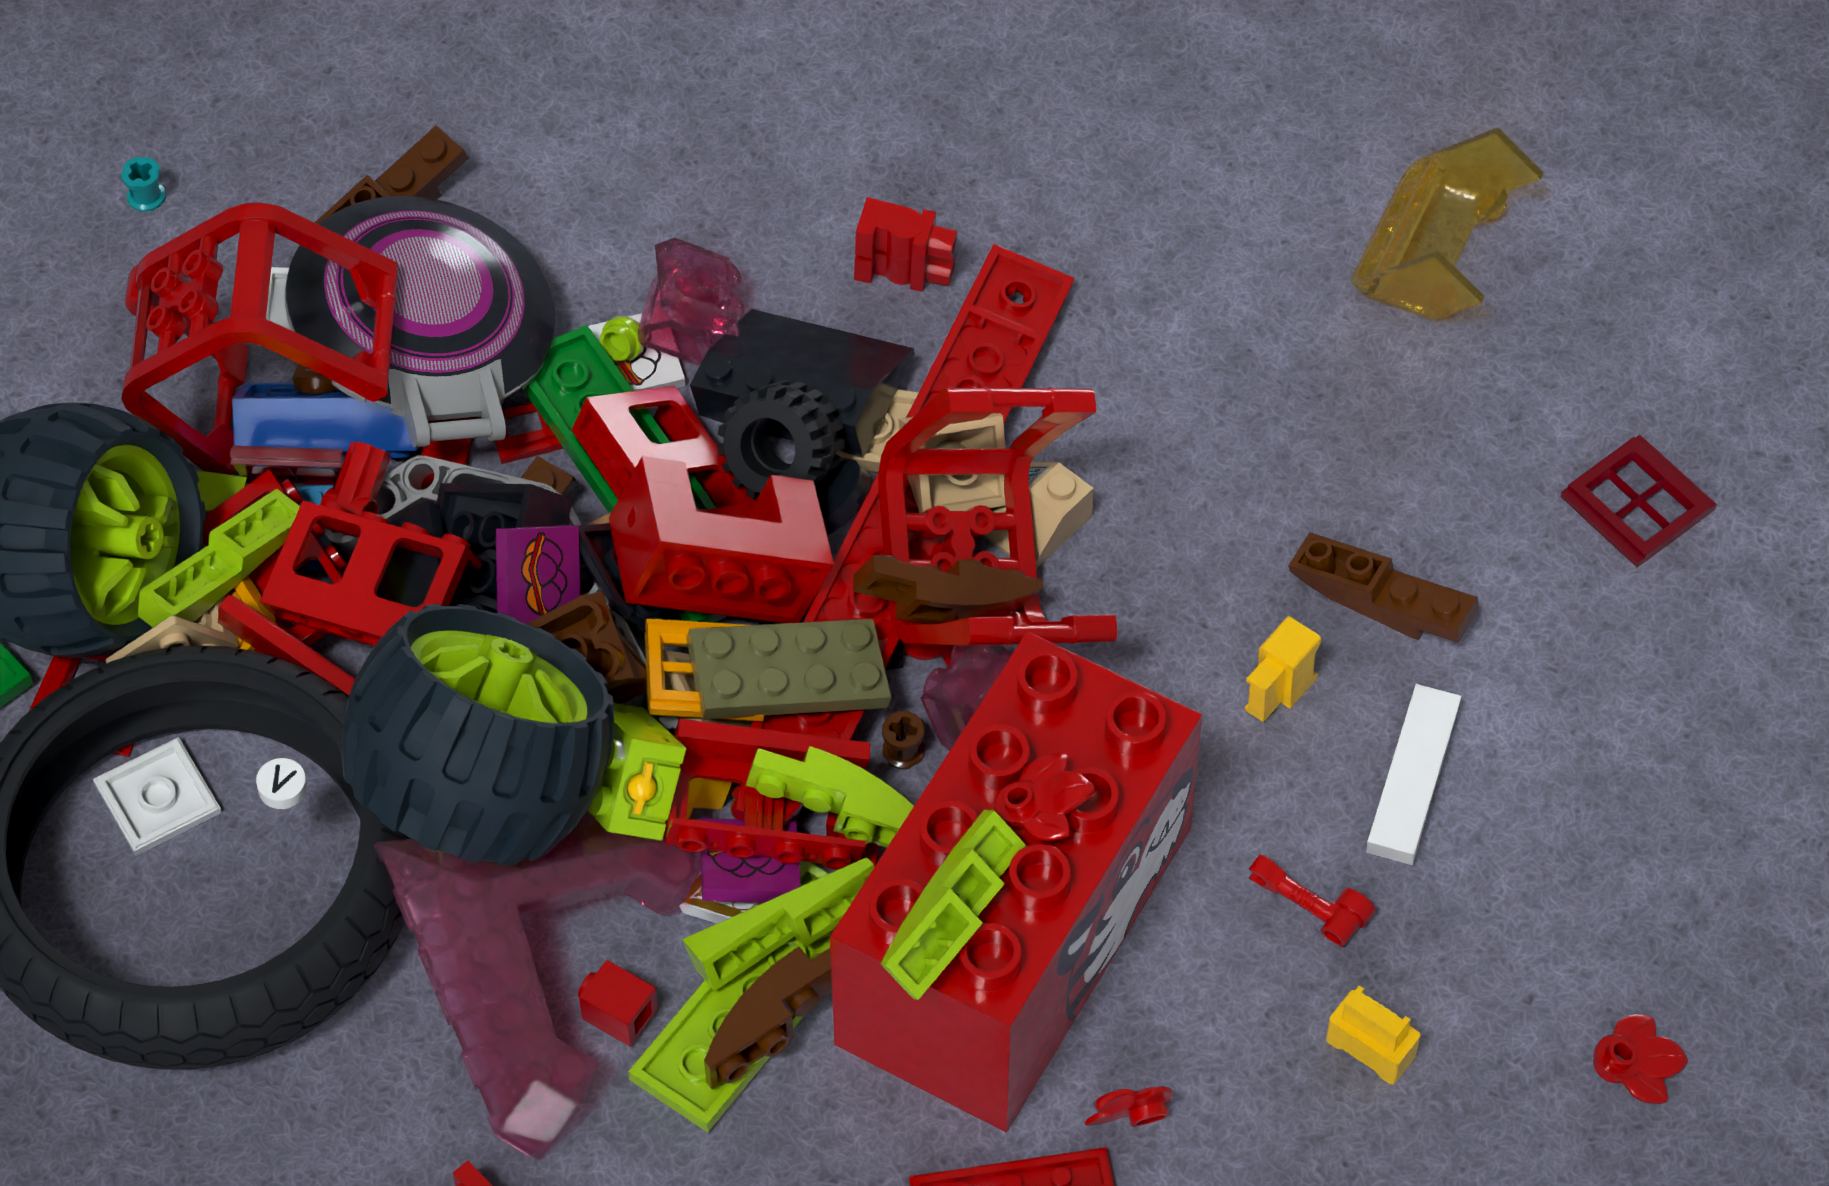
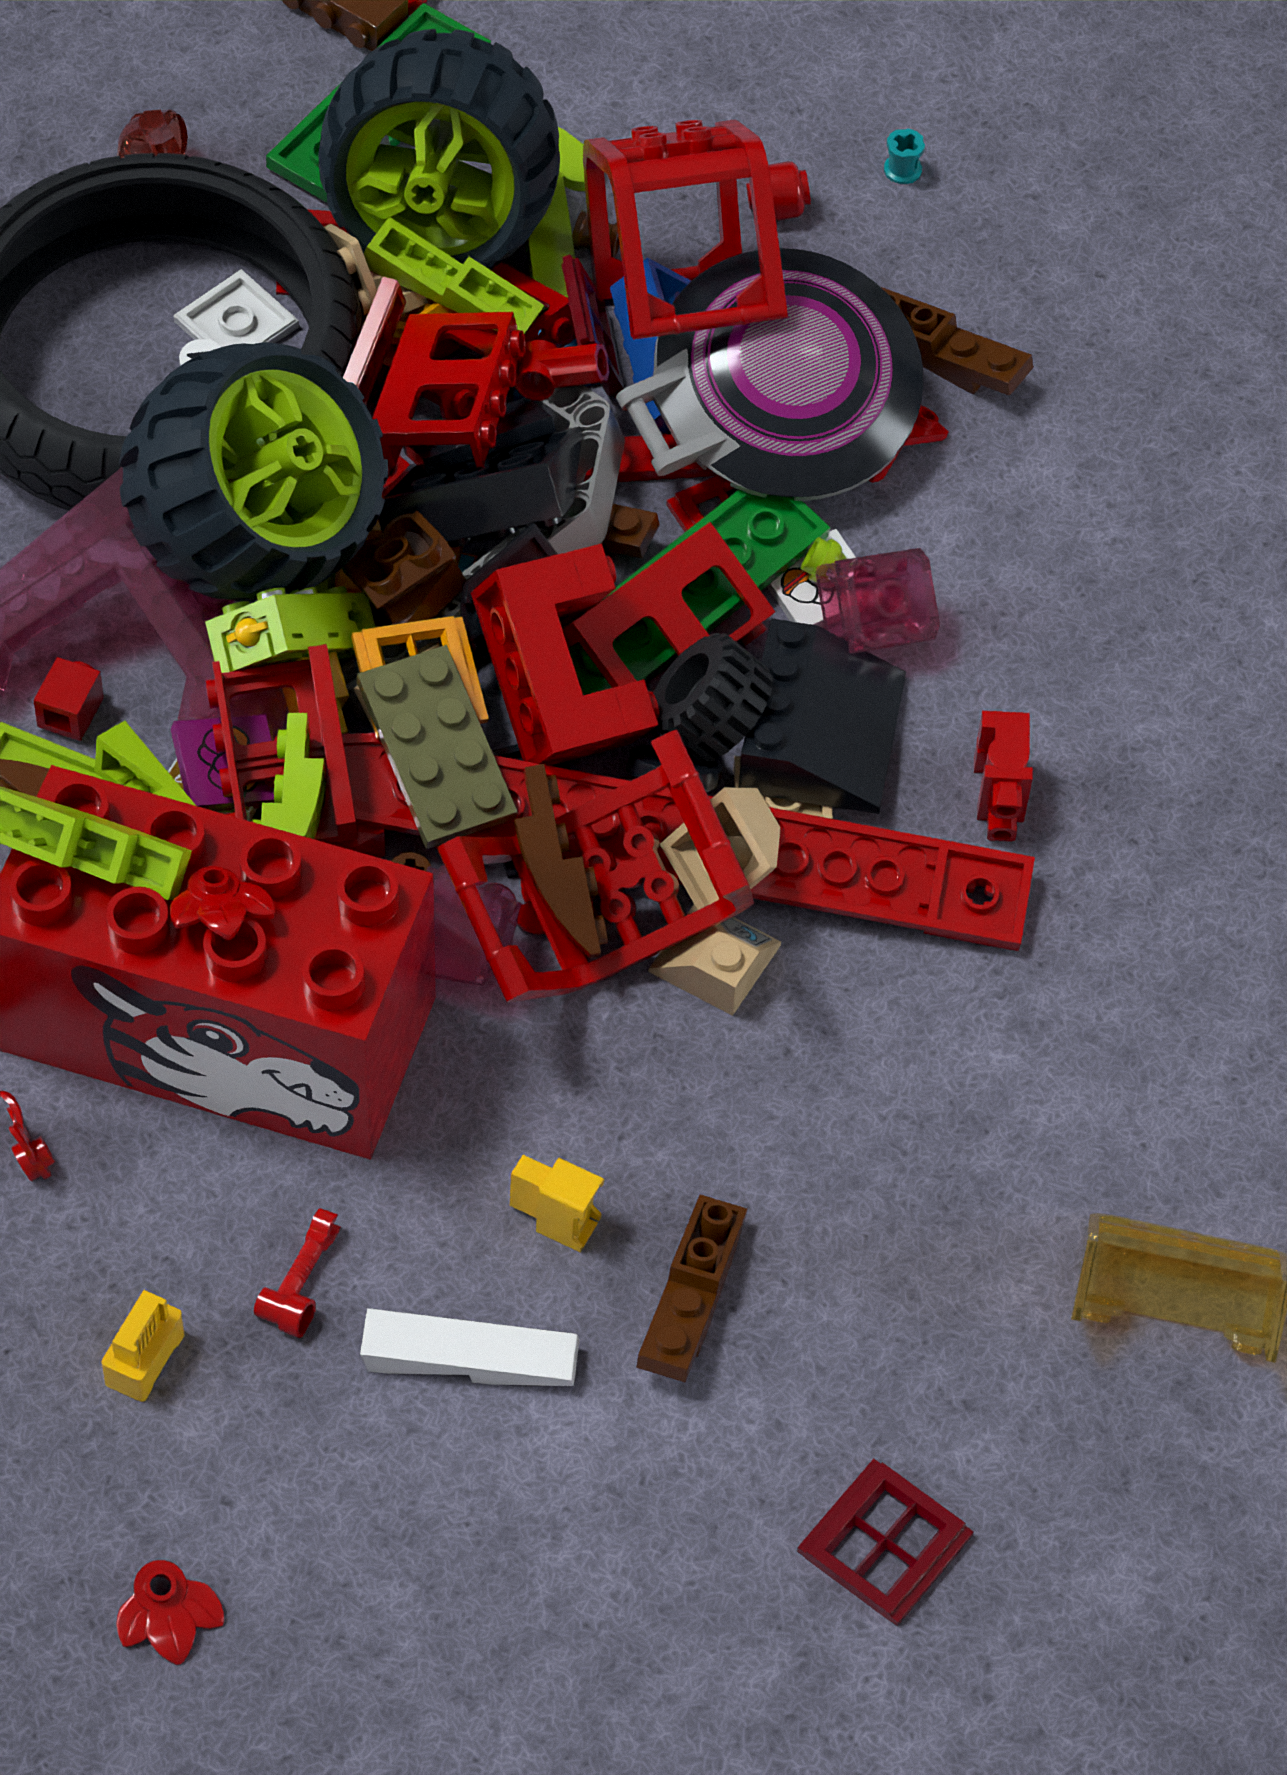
camera: 75 degrees right, 0 degrees up
(536, 569) = (471, 504): magenta tile -> none

